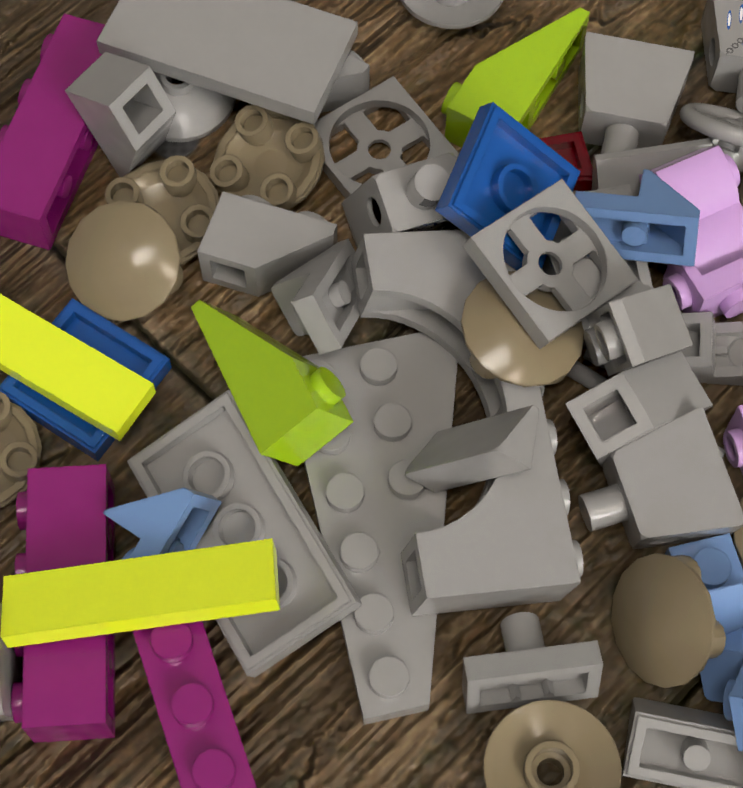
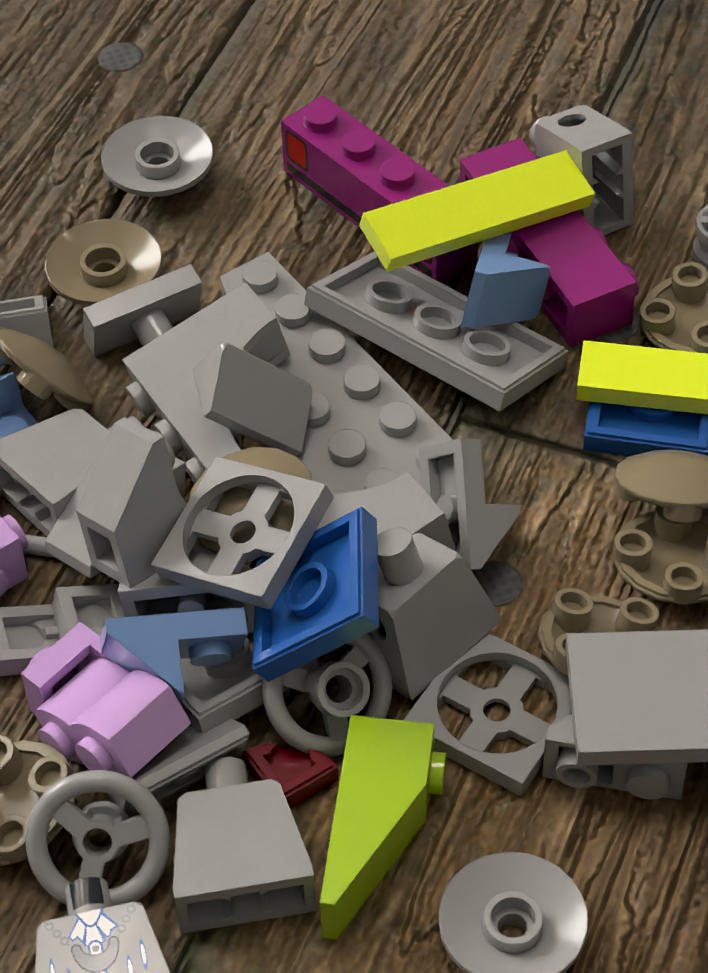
camera: 160 degrees right, 15 degrees down
(258, 244) = (555, 547): light grey slope -> none
(280, 394) = (449, 399): lime slope -> none

